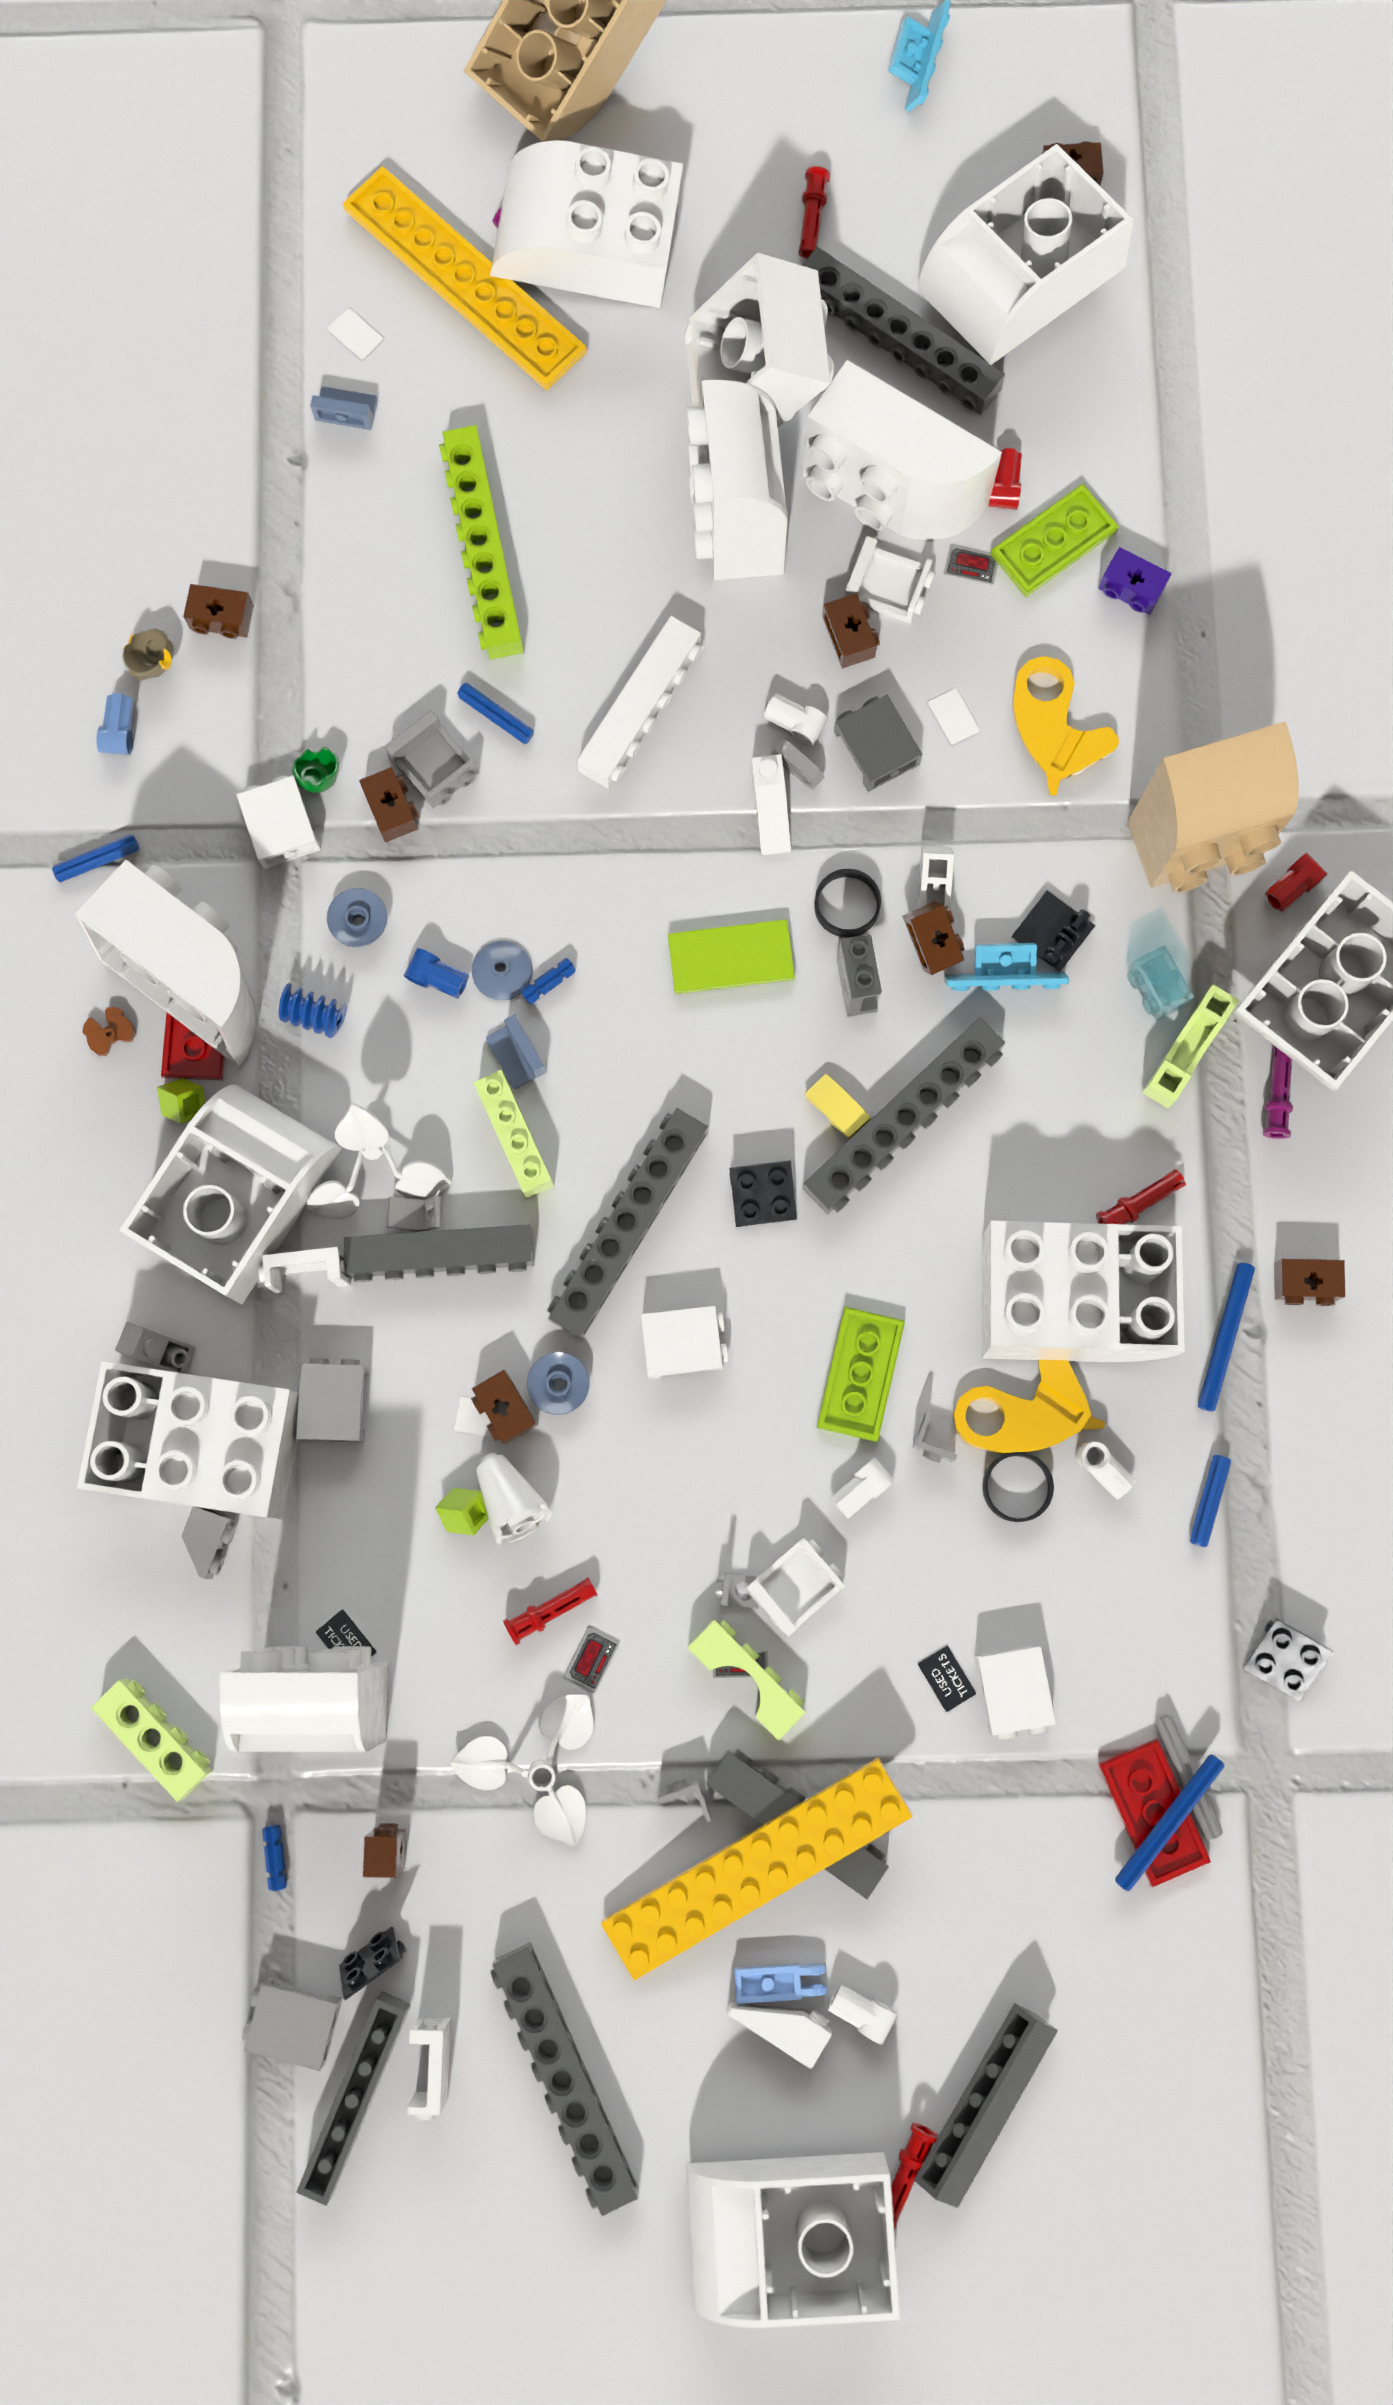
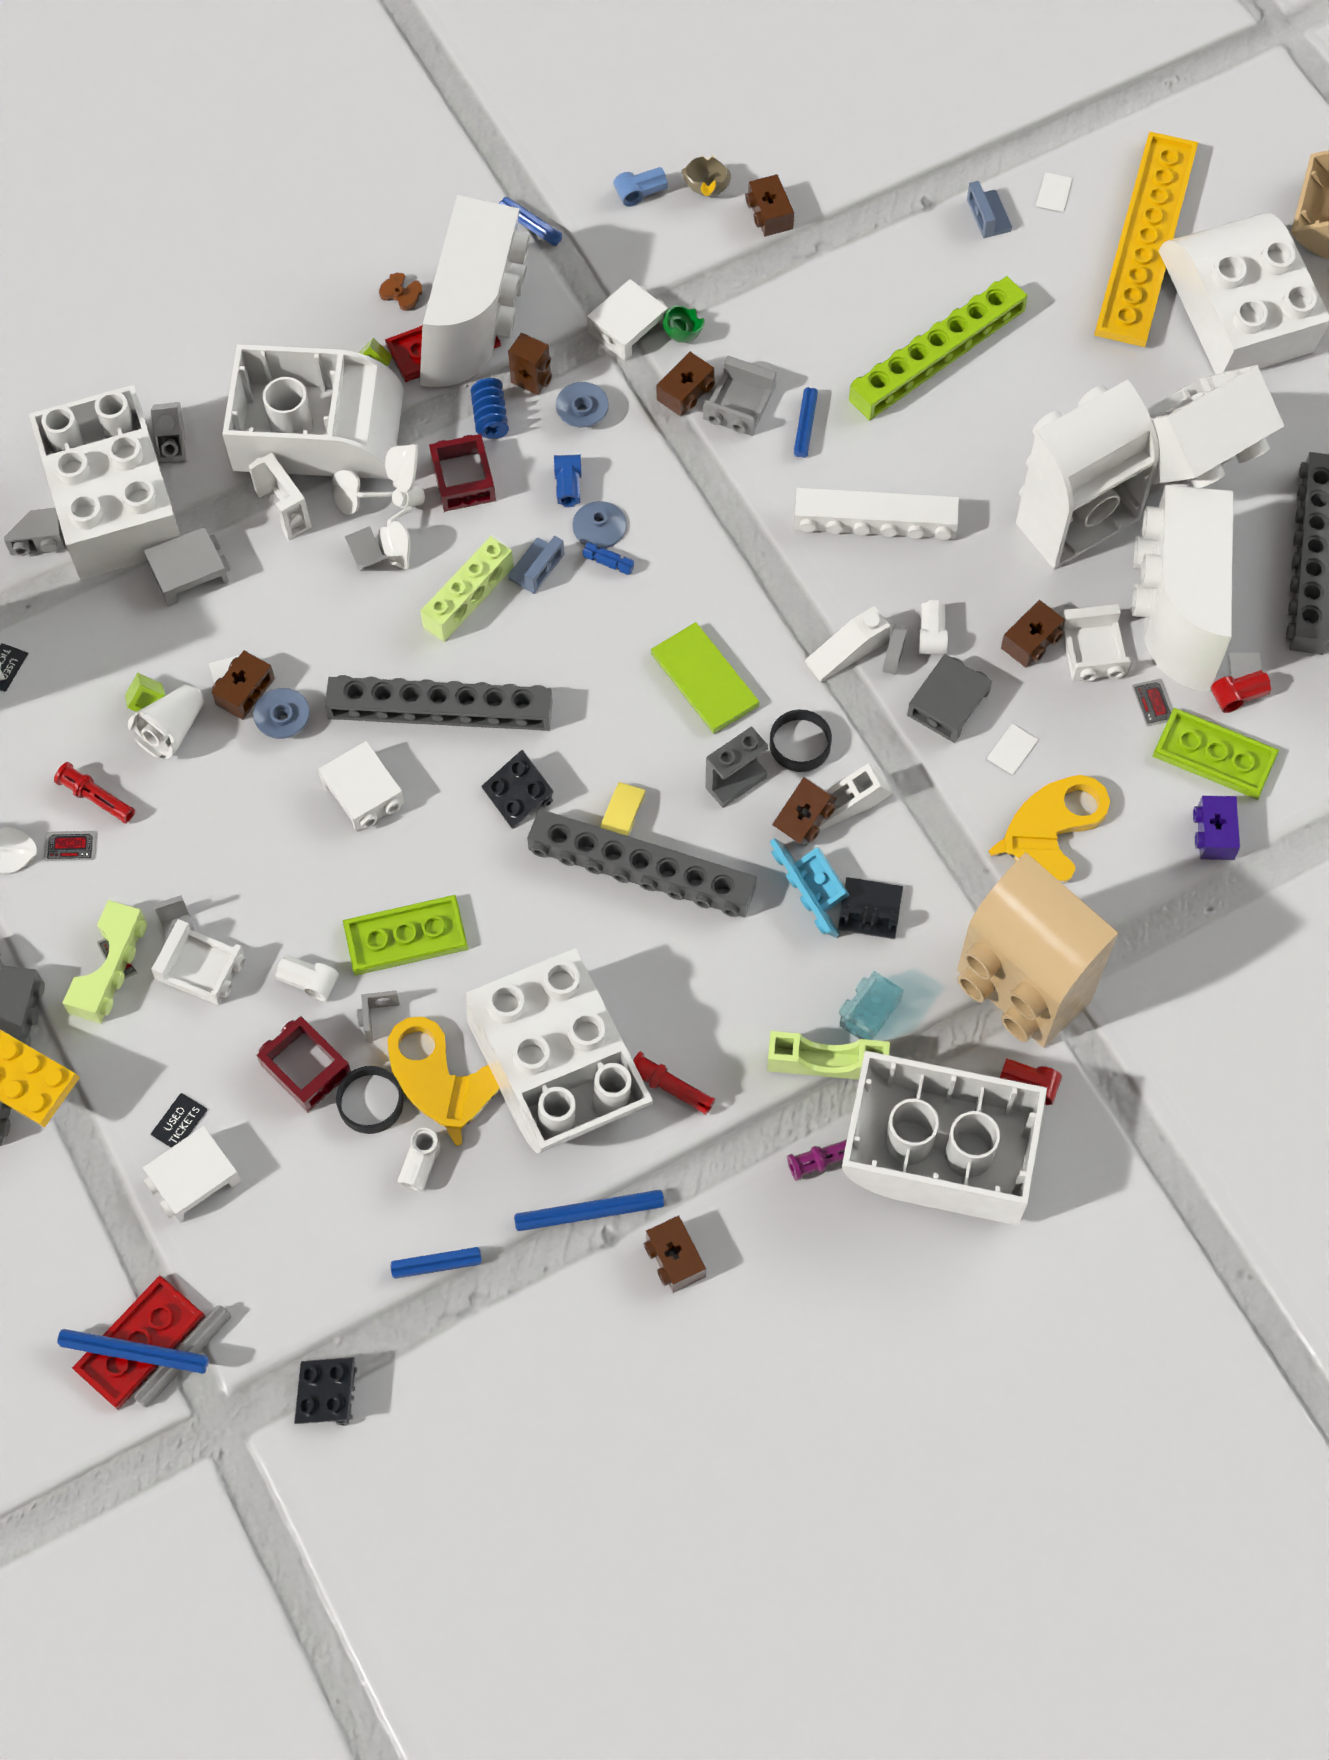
camera: 60 degrees right, 15 degrees down
(286, 943) = (530, 363): none -> reddish brown brick
(400, 1083) = (468, 493): none -> dark red window
(438, 1252) = (345, 583): dark grey brick -> none
(983, 1524) = (322, 1083): none -> dark red window

